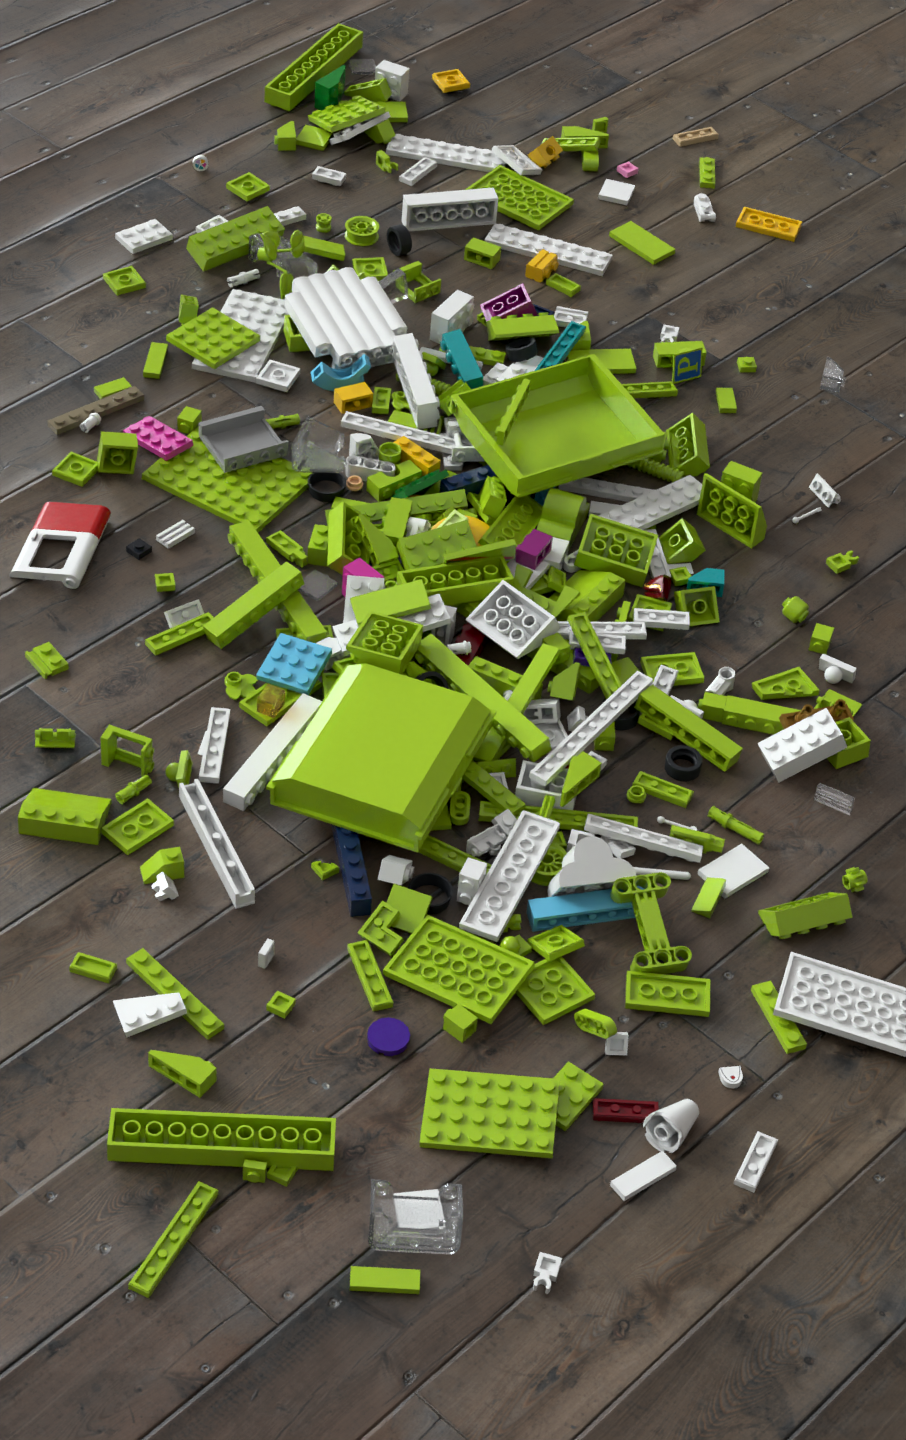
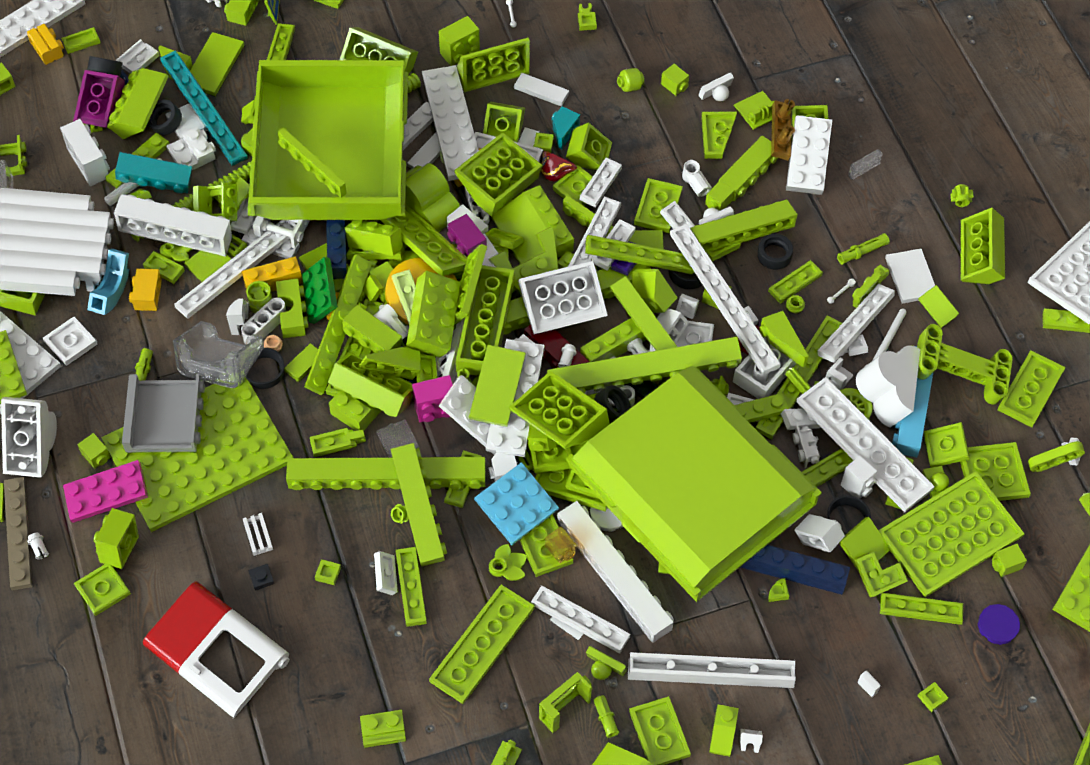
camera: 60 degrees left, 15 degrees up
(155, 692) = (481, 644): none -> lime plate
(175, 376) = (26, 436): none -> white brick
(539, 296) = (104, 66): none -> black tyre
(558, 641) = (607, 277): lime brick -> none
(738, 559) = (541, 89): none -> white tile

